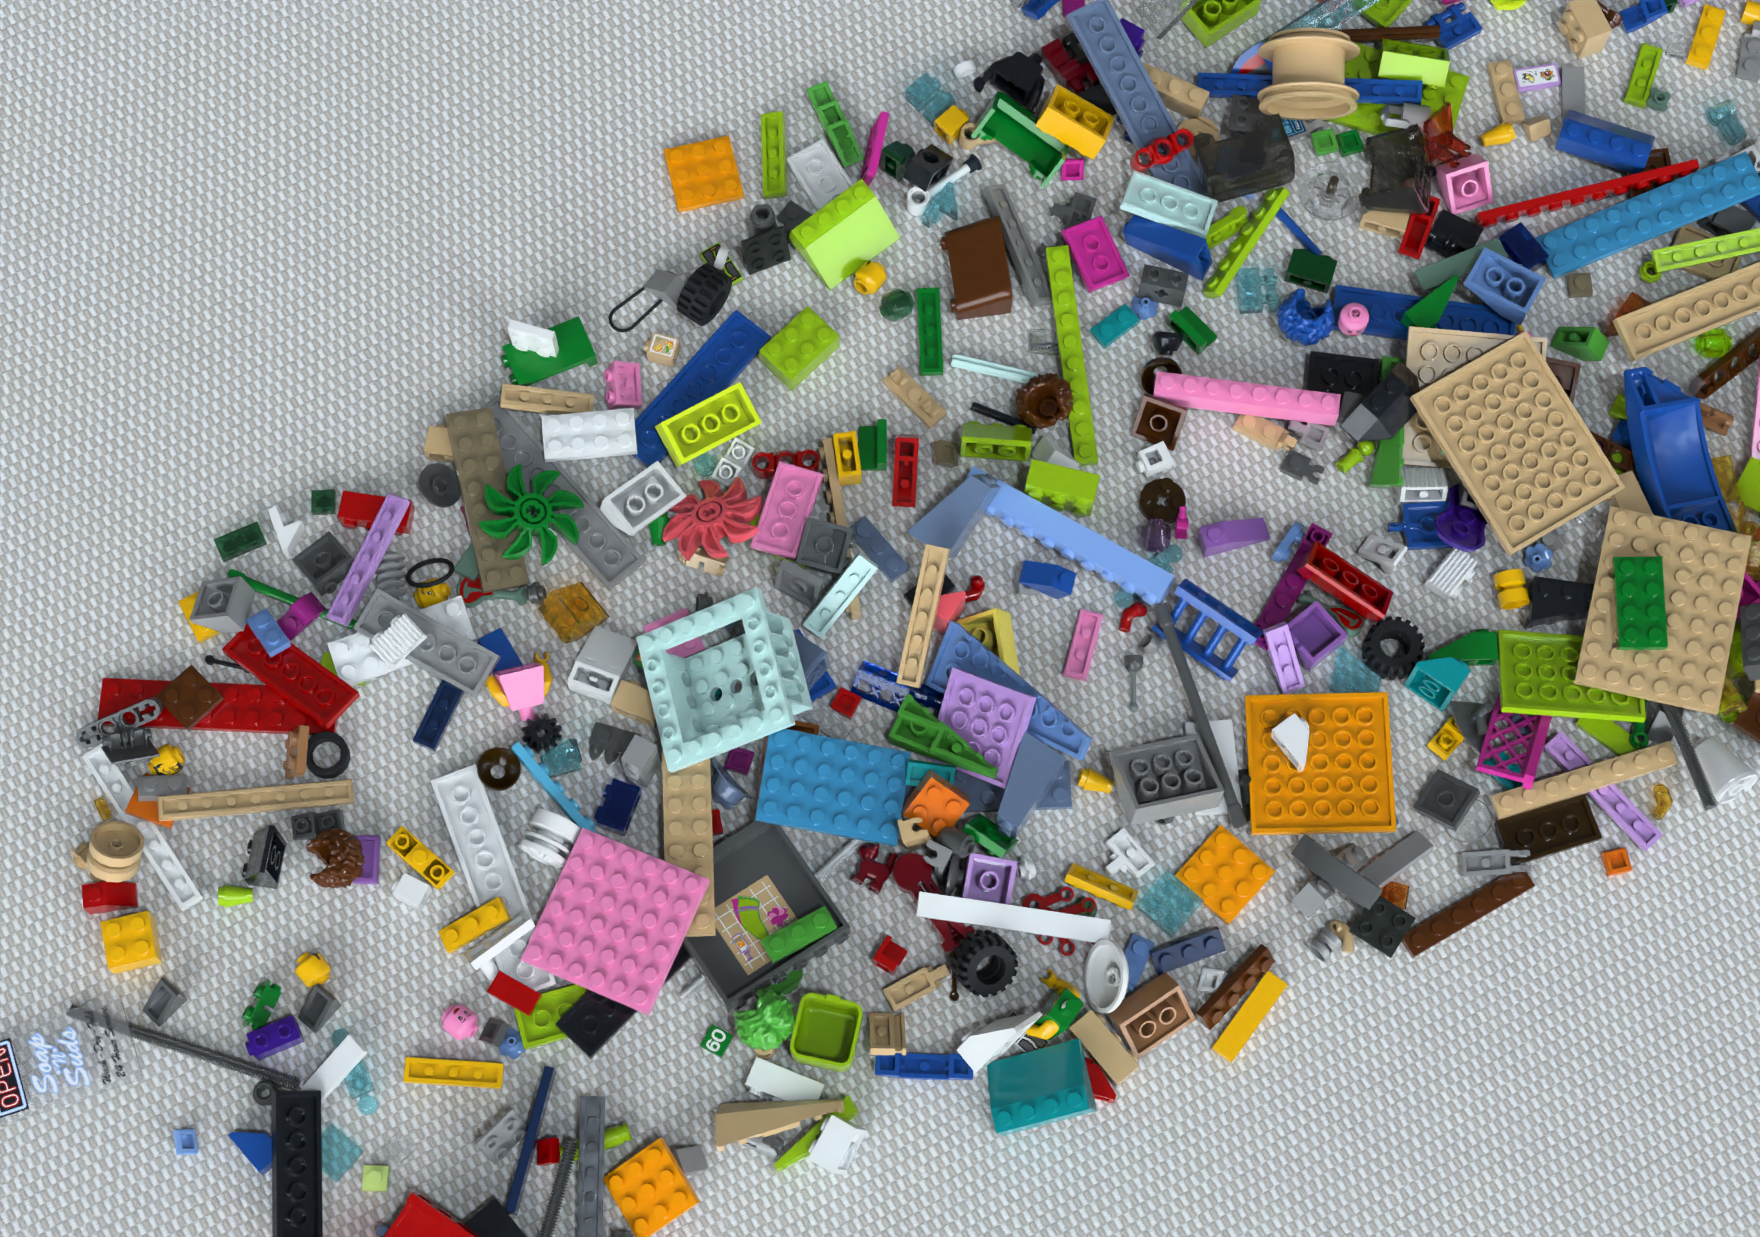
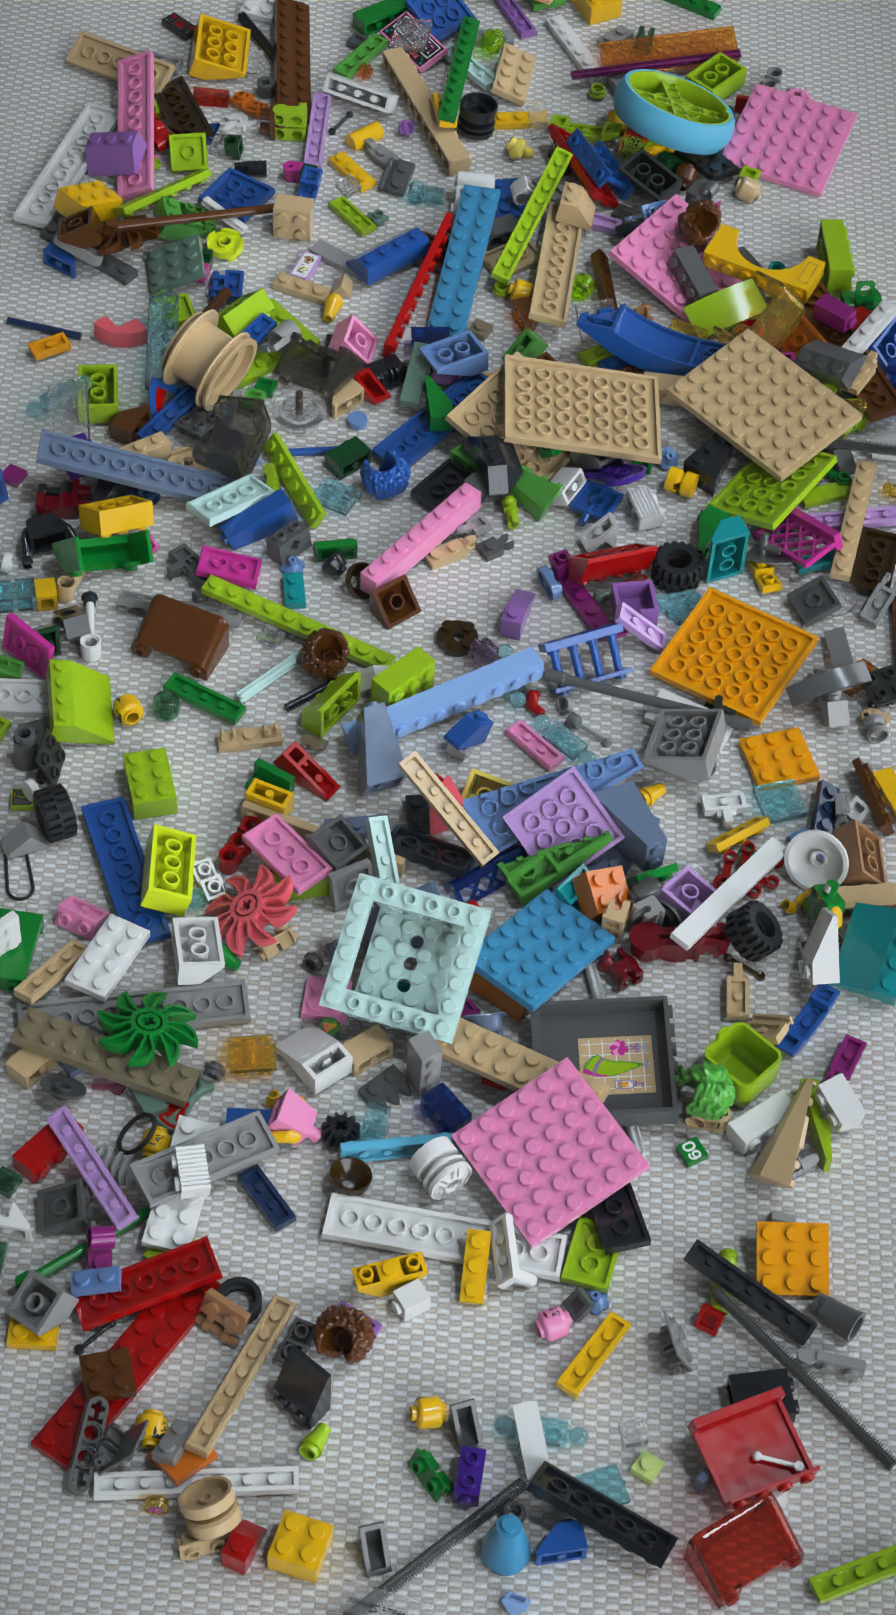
camera: 60 degrees left, 20 degrees down
(230, 1106) = (506, 1546): none -> dark azure cone
(514, 993) = (557, 1267): red tile -> none
(530, 1141) = (691, 1325): dark blue tile -> none
(662, 349) = (73, 872): tan brick -> none
(798, 934) = (650, 1031): bright green plate -> none
(884, 623) = (431, 852): none -> black plate
(889, 956) = (700, 998): red panel -> none
(903, 1124) = (847, 1057): none -> magenta hinge
(943, 204) = (109, 632): clear light blue slope -> none
(1104, 669) = (563, 739): none -> clear light blue plate
(1156, 453) = (422, 626): white brick -> none
(1170, 145) = (186, 477): red piece -> none
(1181, 524) = (484, 631): dark pink piece -> none
(1196, 966) = (842, 808): none -> light grey plate
(1206, 58) = (128, 424): none -> reddish brown slope
(1293, 739) = (711, 655): white slope -> none
(1353, 319) = (410, 448): bright pink head -> none
(1369, 249) = (357, 420): none -> medium blue tile
(1440, 138) = (320, 331): clear red plate -> none
(1640, 603) = (753, 408): green plate -> none
(1656, 289) = (519, 289): none -> yellow head
(1728, 82) = (397, 177): none -> dark grey plate

